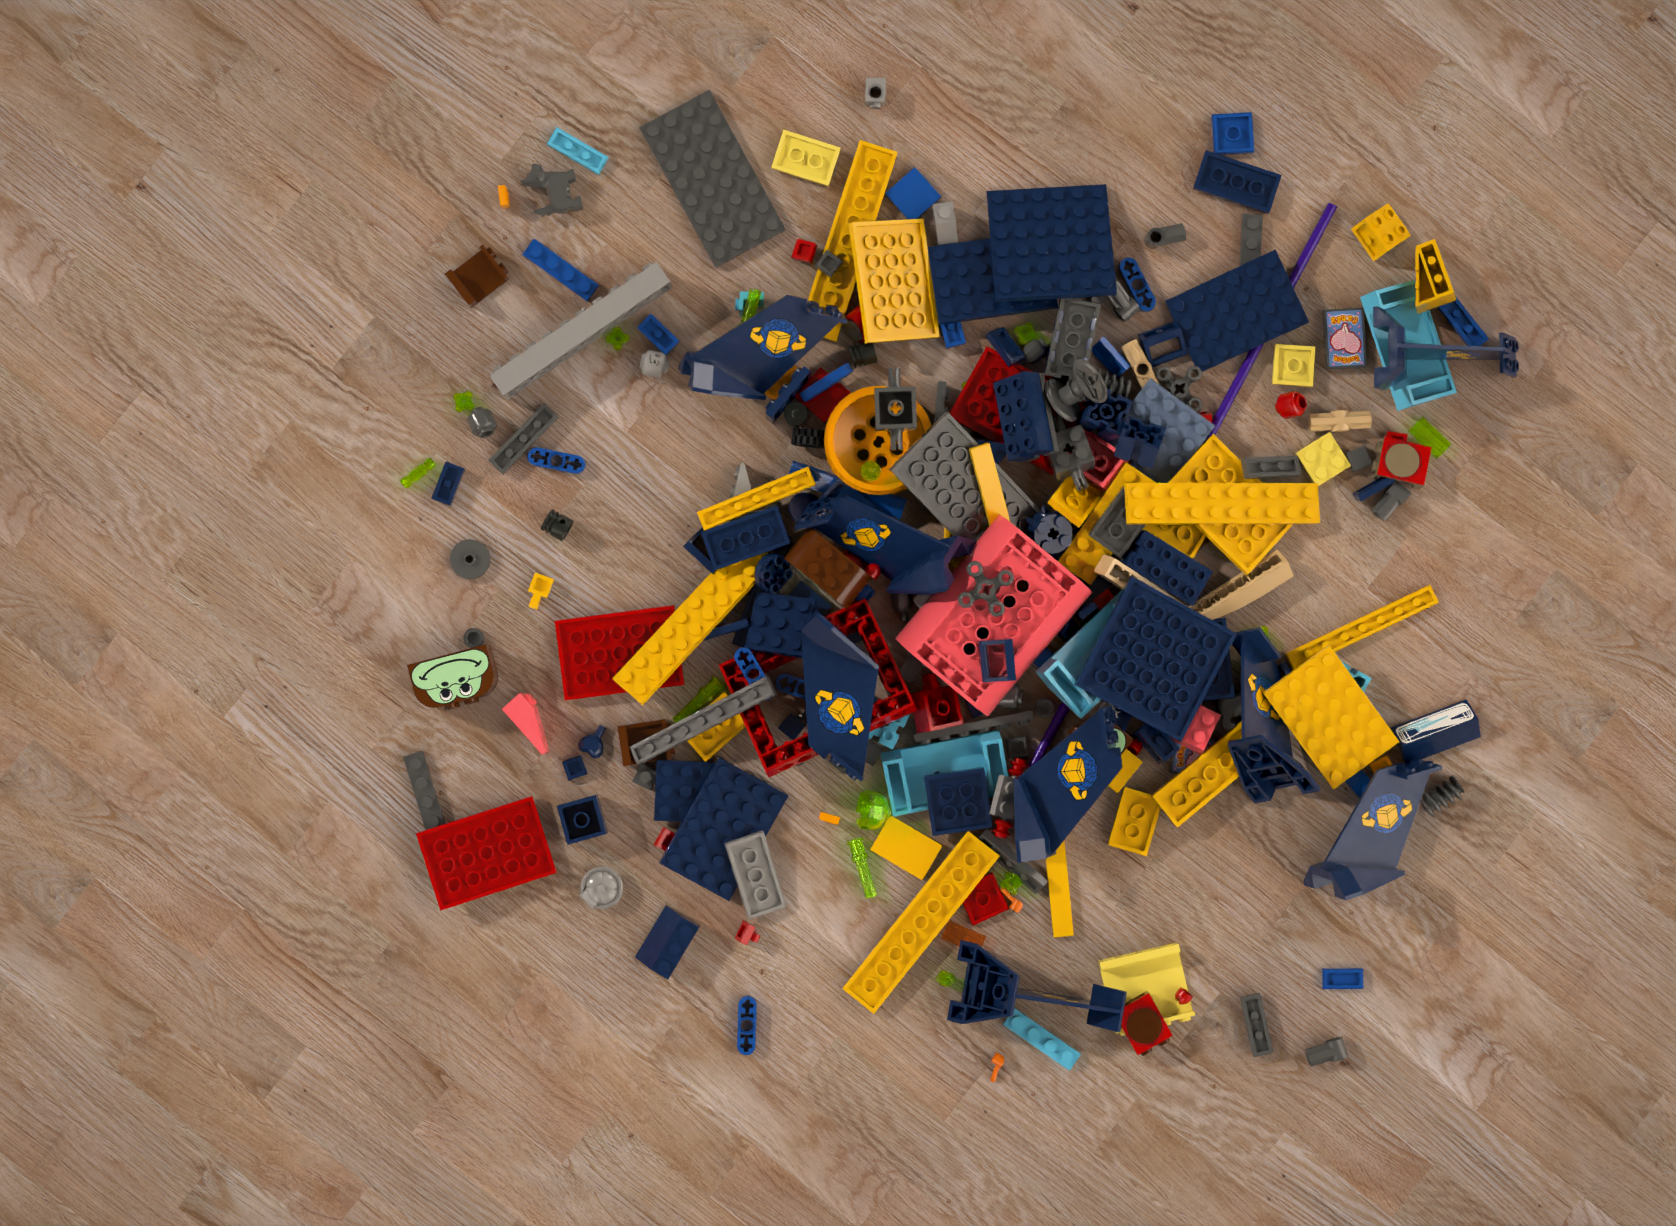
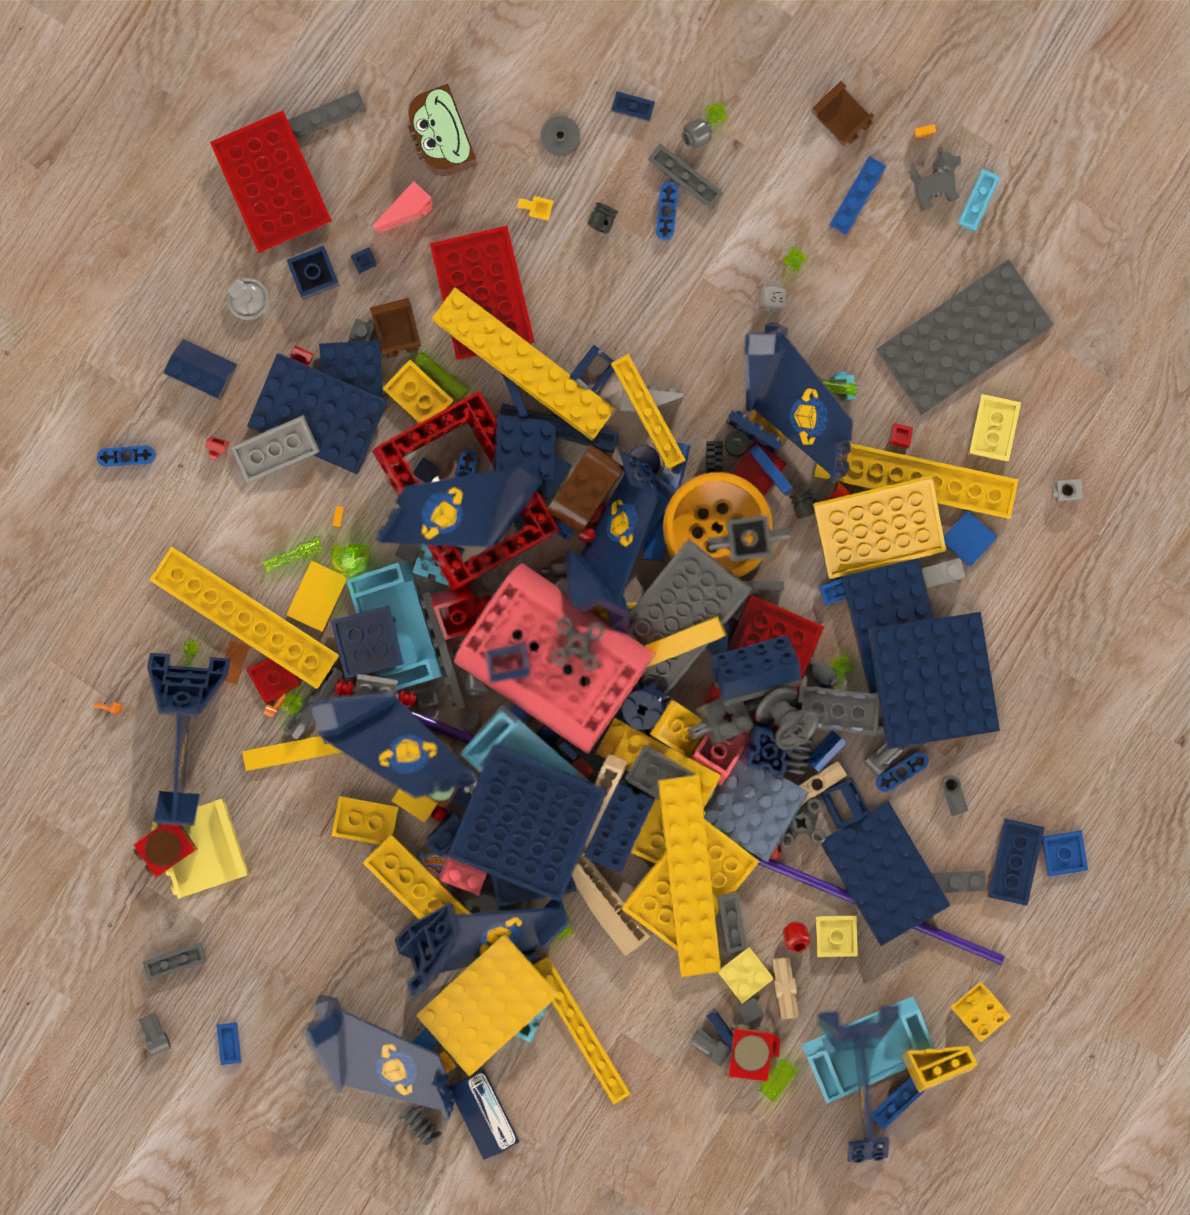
camera: 80 degrees right, 0 degrees up
(418, 472) = (640, 75): clear neon green axle -> none
(473, 637) = (482, 147): dark grey tile -> none
(581, 331) = (797, 221): light grey brick -> none
(593, 743) = (389, 276): dark blue rock -> none
(658, 334) = (802, 299): blue plate -> none
(703, 720) = (422, 380): flat silver tile -> none
(745, 537) = (607, 405): dark blue plate -> none
(751, 659) = (487, 422): blue beam -> none
(772, 572) = (575, 435): dark blue tile -> none
(828, 263) = (890, 460): dark grey tile -> none
(870, 471) = (685, 520): clear neon green plate -> none
(1005, 346) = (825, 645): dark blue tile -> none
(1042, 1039) = (140, 749): medium azure plate -> none
(1139, 442) = (741, 786): dark blue brick -> none
(1183, 996) = (196, 885): red hinge -> none
(1344, 338) = (869, 985): tile -> none

